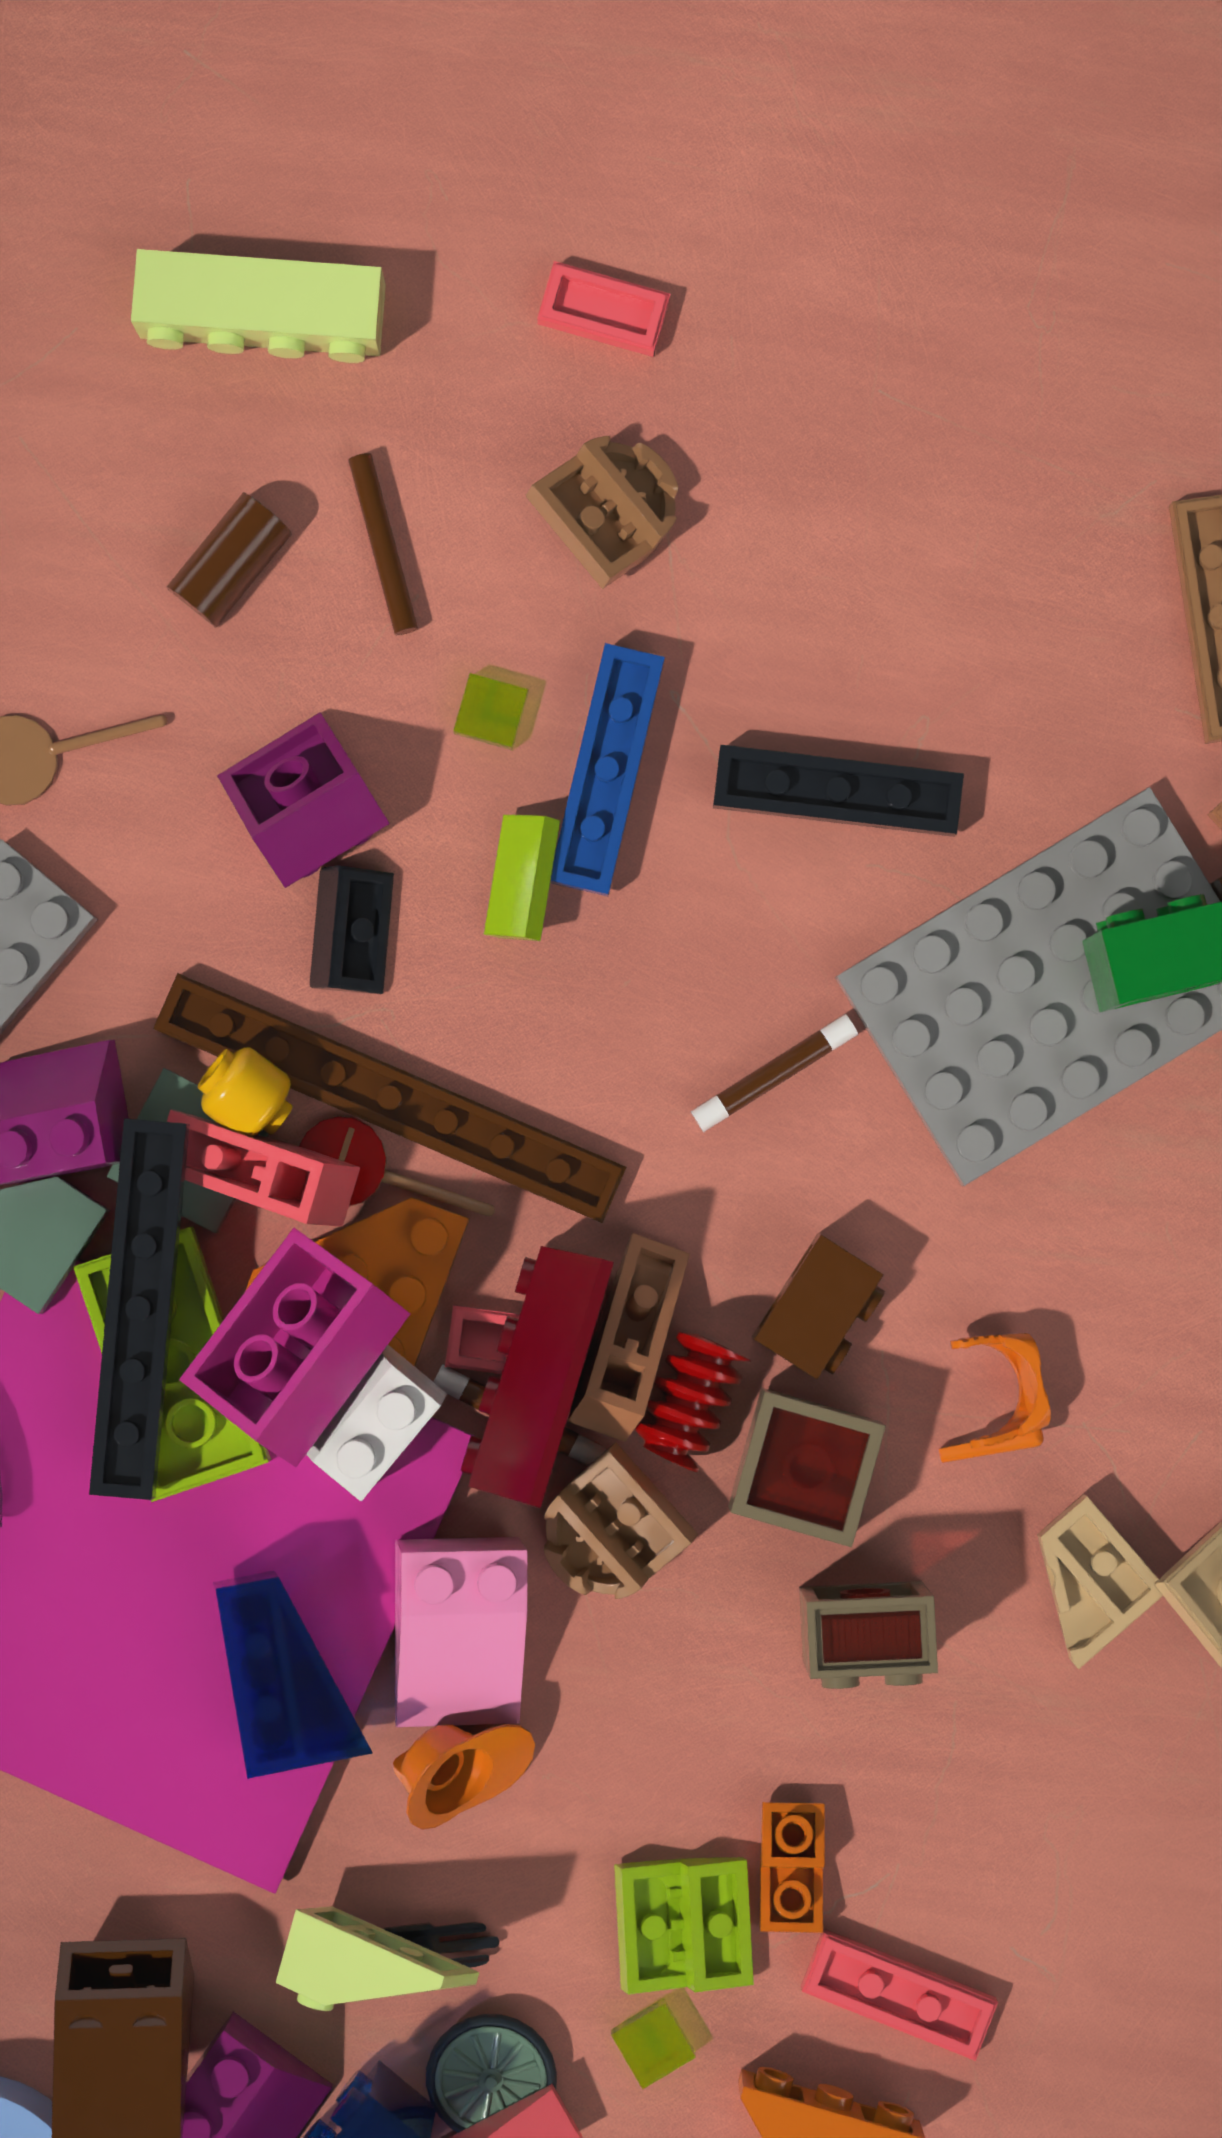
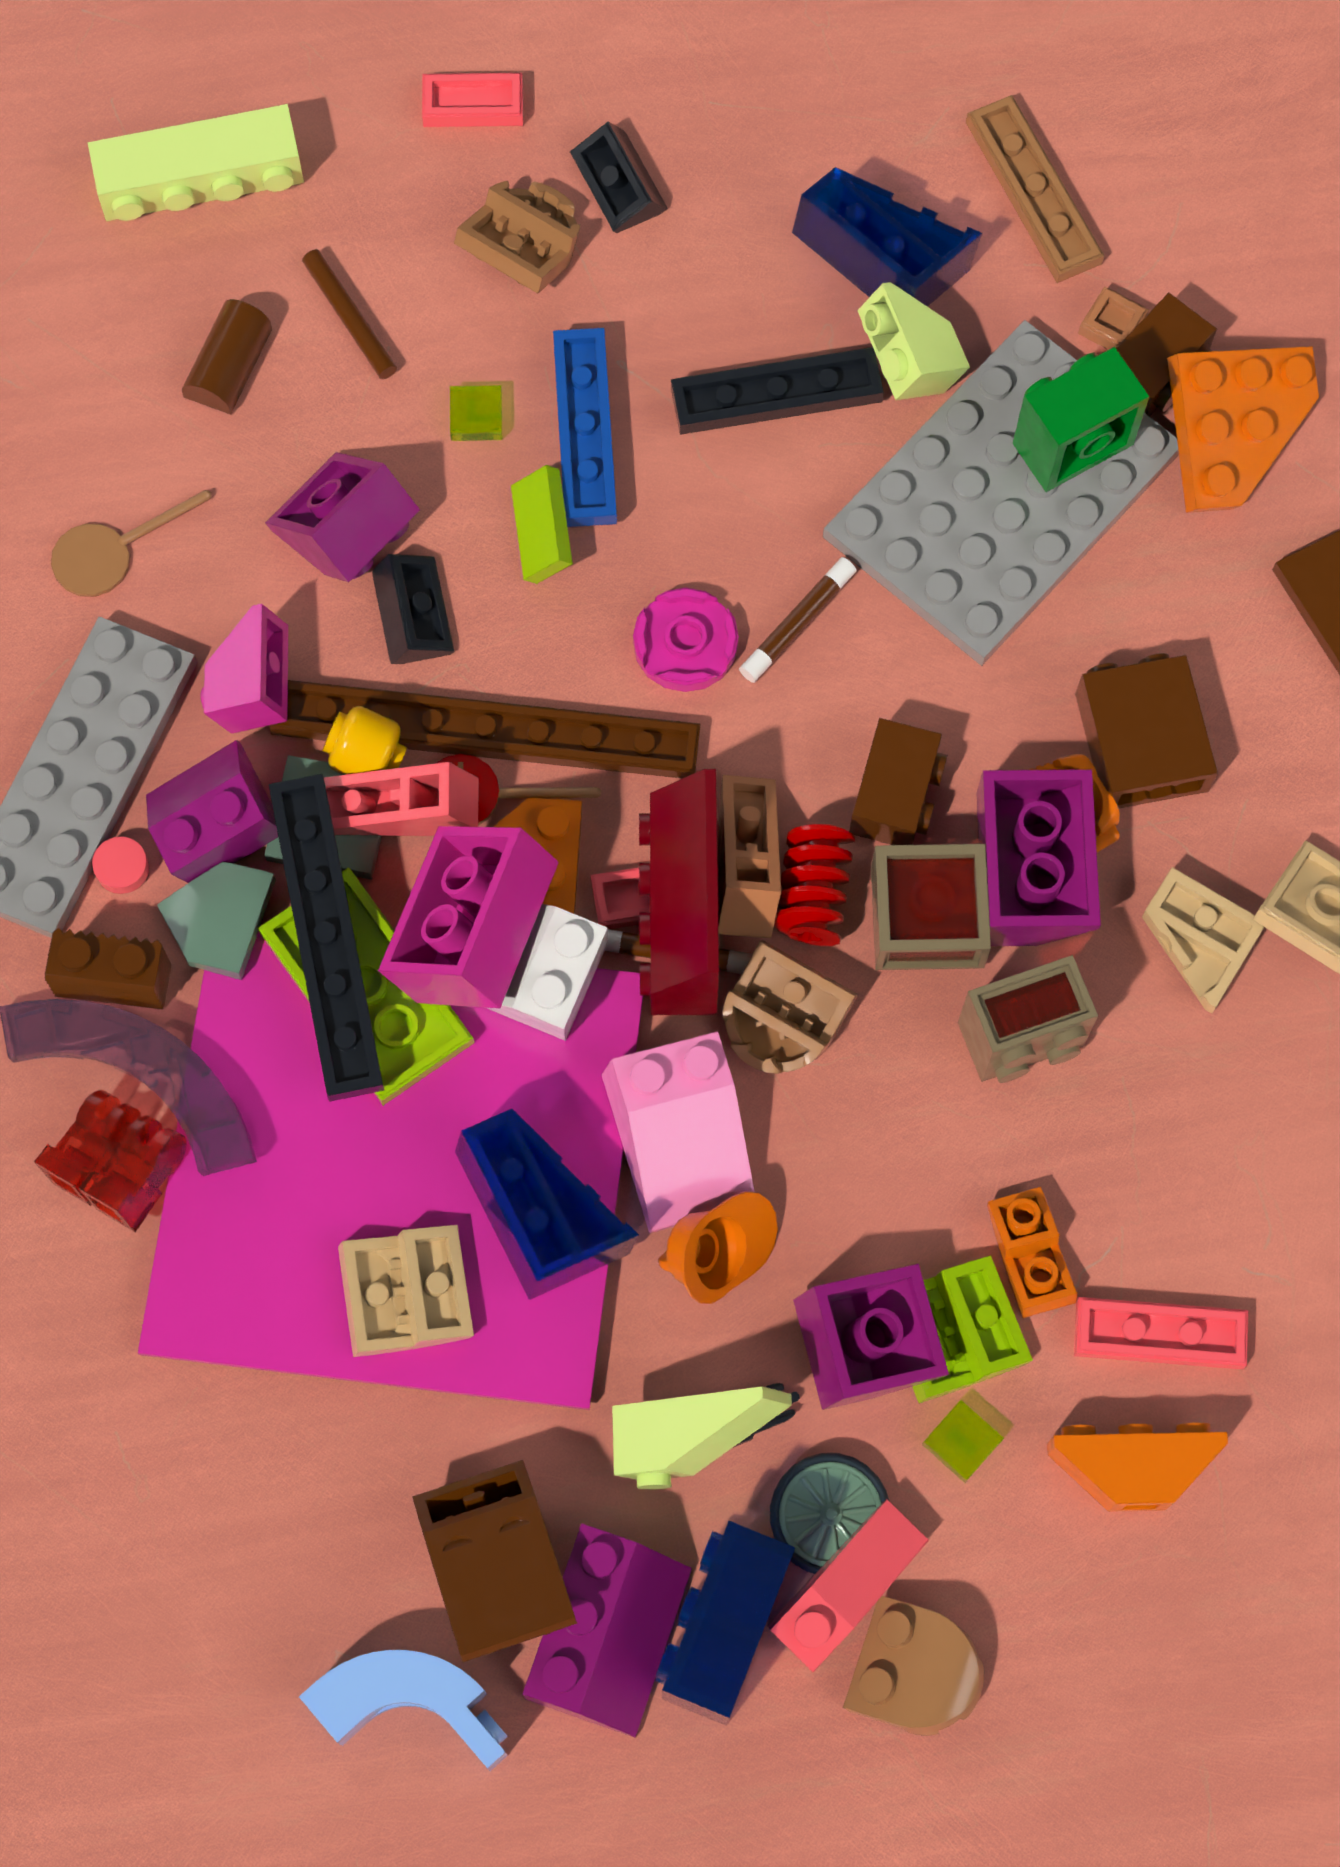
camera: 20 degrees left, 15 degrees down
(118, 1715) = (405, 1291): none -> tan slope
(145, 965) = (249, 674): none -> dark pink slope
(588, 1918) = (870, 1336): none -> magenta slope
(642, 1058) = (685, 640): none -> dark pink tile
(742, 461) = (618, 178): none -> black slope
(944, 1446) = (1039, 854): none -> magenta slope
(1007, 786) = (912, 343): none -> yellowish green slope
(1016, 650) = (881, 240): none -> clear blue wedge
(1114, 1327) = (1146, 730): none -> reddish brown brick

